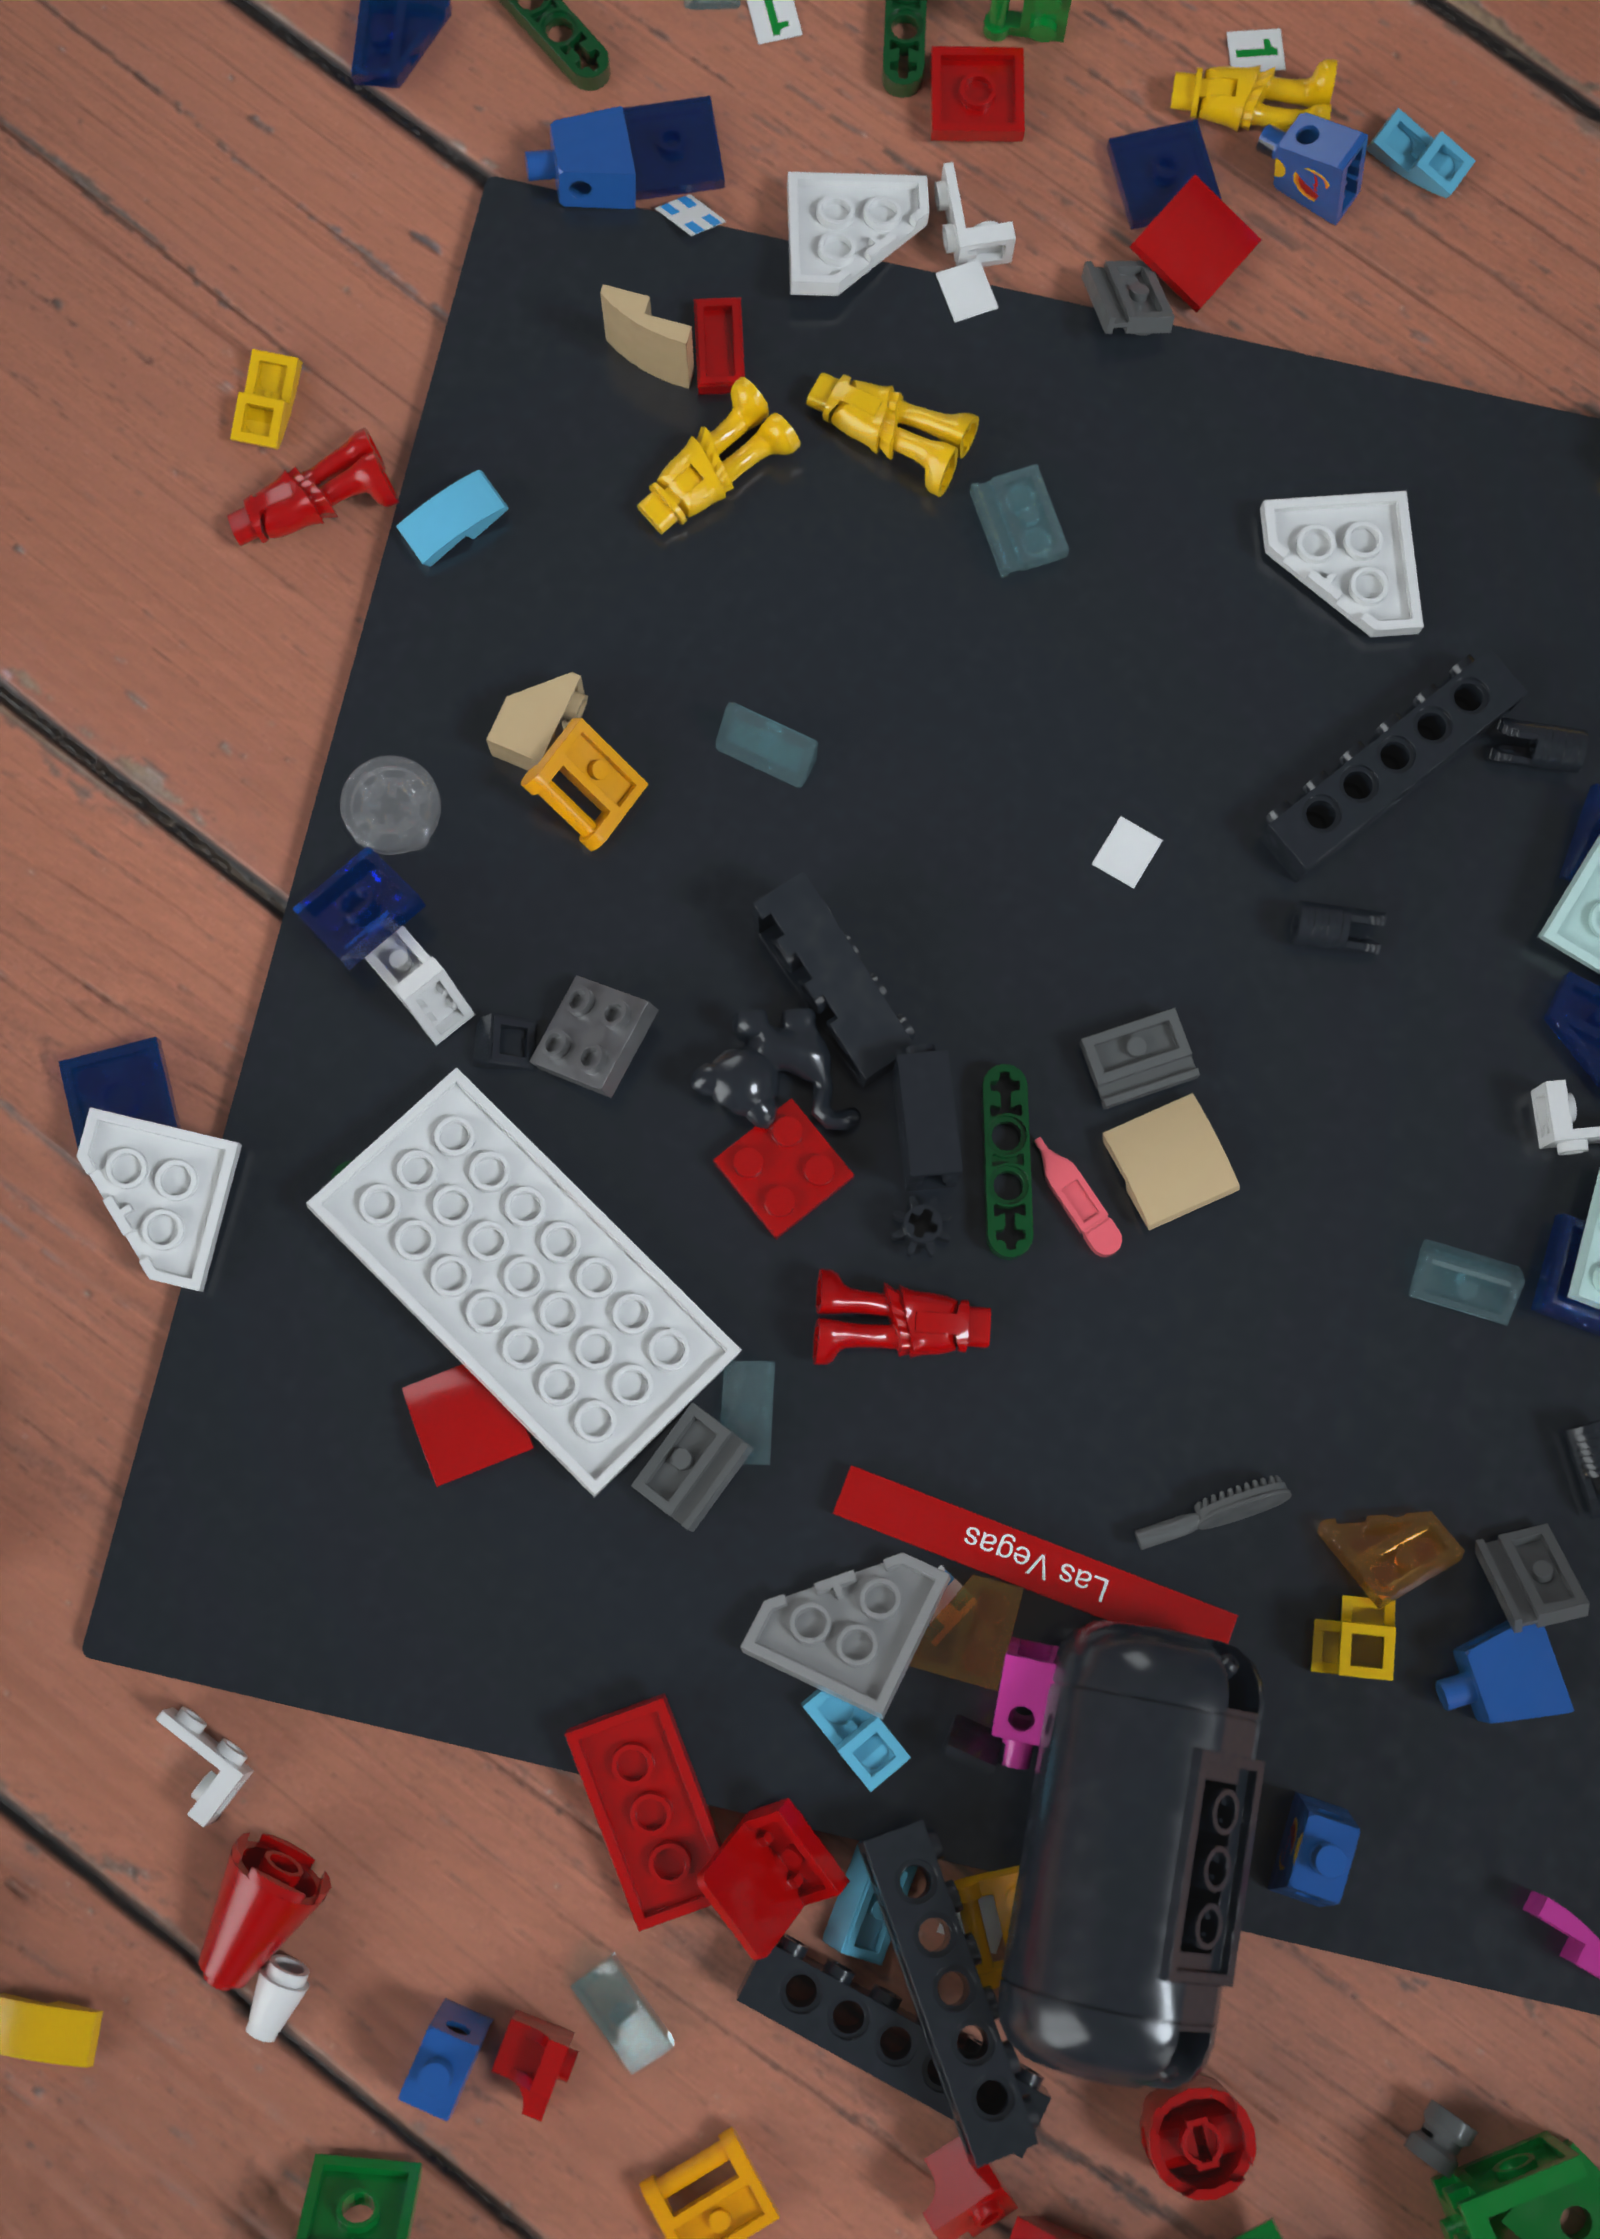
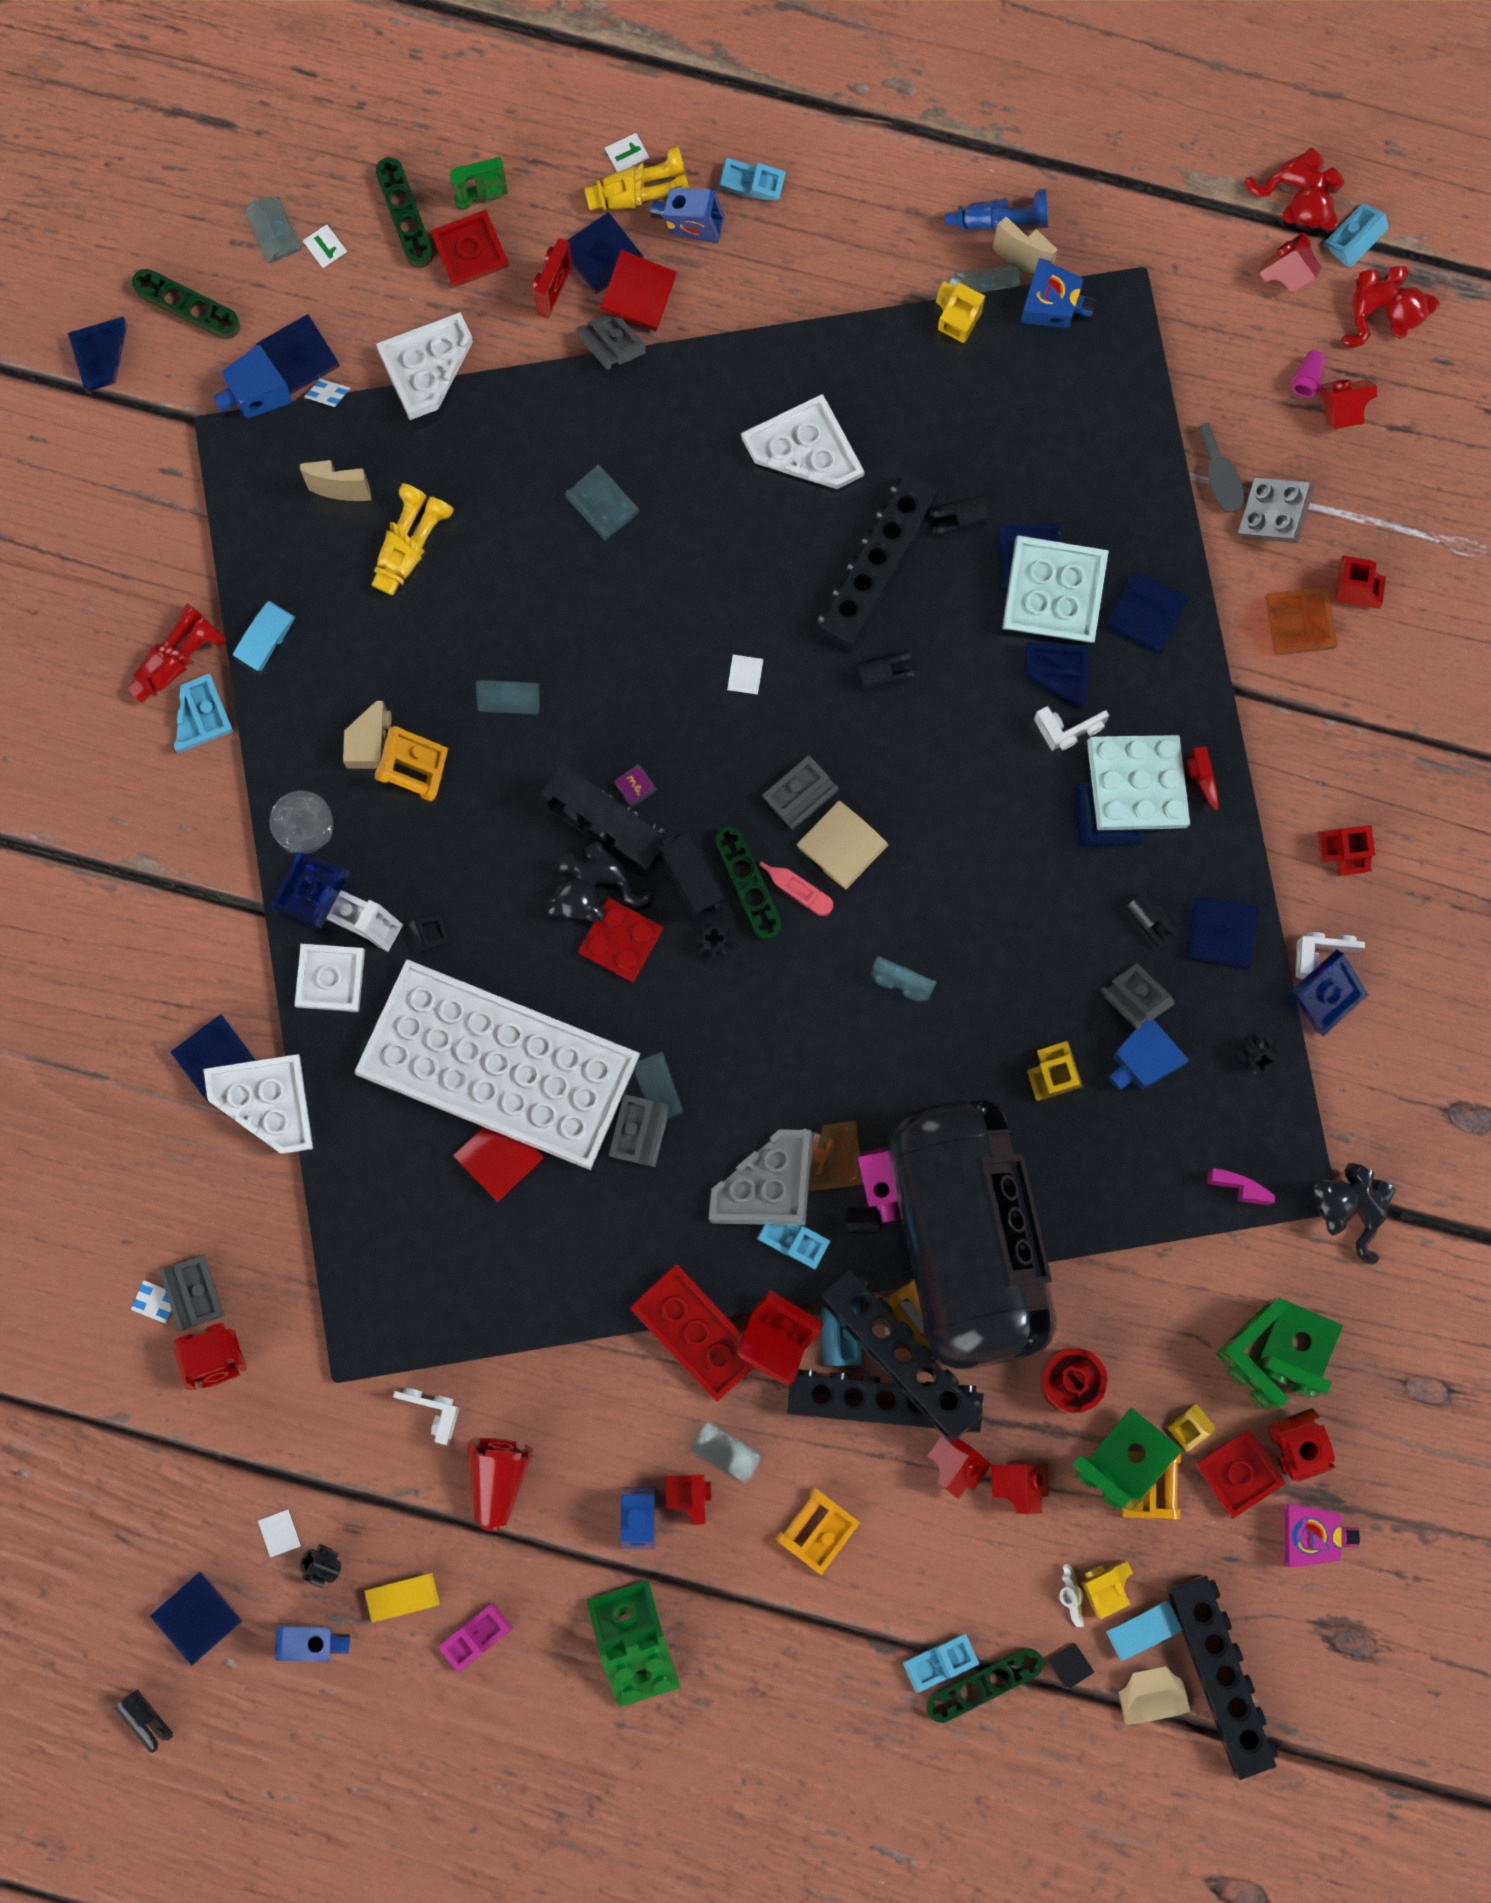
camera: 20 degrees left, 0 degrees up
(125, 2140) = (475, 1637): none -> dark pink slope
(267, 400) = (118, 608): yellow slope -> none
(276, 1996) = (527, 1523): white cone -> none
(316, 594) = (200, 714): none -> medium azure wing
(334, 1048) = (329, 977): none -> white plate
(594, 1036) = (479, 908): flat silver plate -> none
(718, 344) = (378, 466): red tile -> none
(873, 415) = (489, 474): yellow piece -> none
(898, 949) = (635, 785): none -> magenta tile
(918, 1321) = (734, 998): red piece -> none
(967, 290) = (513, 373): white sticker -> none
(987, 241) = (511, 340): white bracket -> none
(1023, 1558) = (840, 1105): red tile -> none
(1080, 174) = (551, 281): none -> red plate
(1166, 1387) = (914, 985): none -> clear light blue plate
(1218, 1512) = (949, 1033): dark grey piece -> none
(1315, 1852) = (1076, 1200): blue torso -> none
(1391, 1552) = (1055, 1015): clear orange wing -> none
(1440, 2139) = (1209, 1327): dark grey wheel -> none
(1466, 1282) = (1039, 845): clear light blue slope -> none

